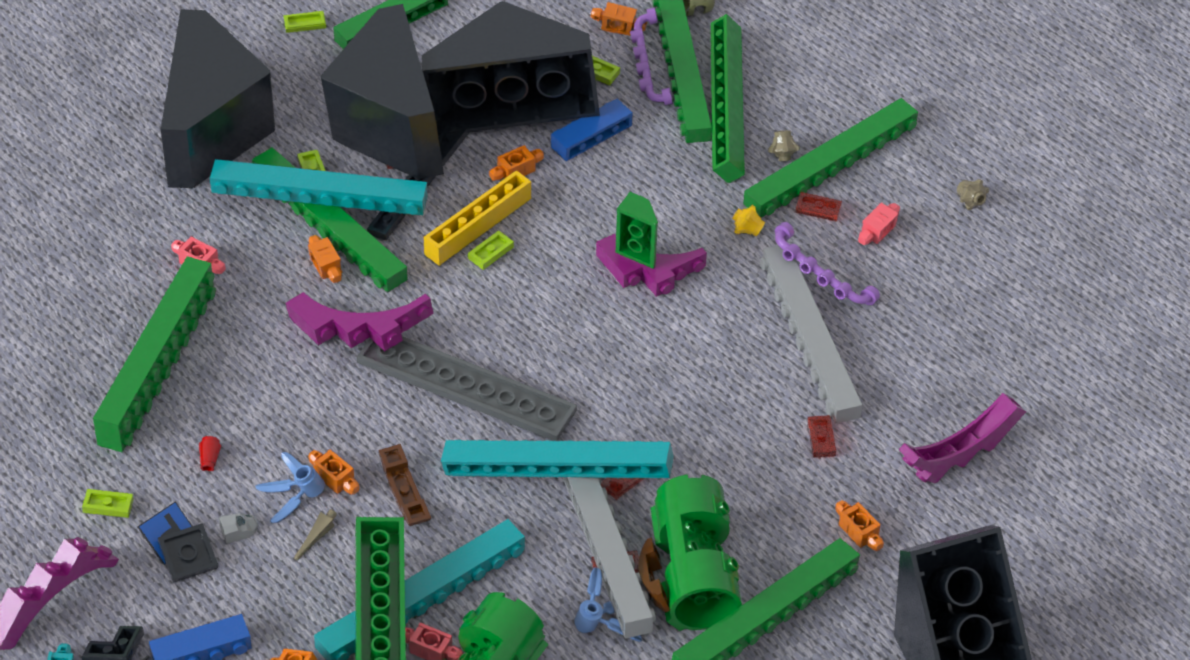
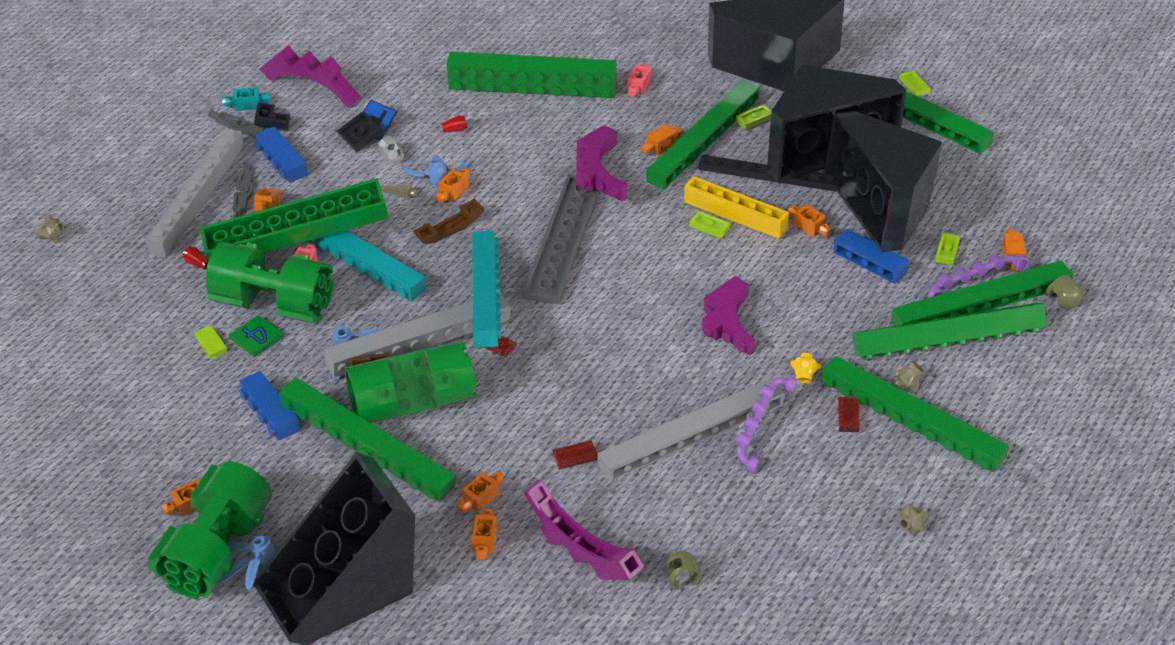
camera: 80 degrees right, 5 degrees down
(107, 503) = (397, 89): lime plate -> none
(318, 187) = (720, 114): teal brick -> none
(637, 230) = (735, 279): green slope -> none
(879, 223) = (843, 456): coral piece -> none
(917, 528) = (484, 544): none -> orange piece
(1003, 371) = (681, 562): none -> olive helmet

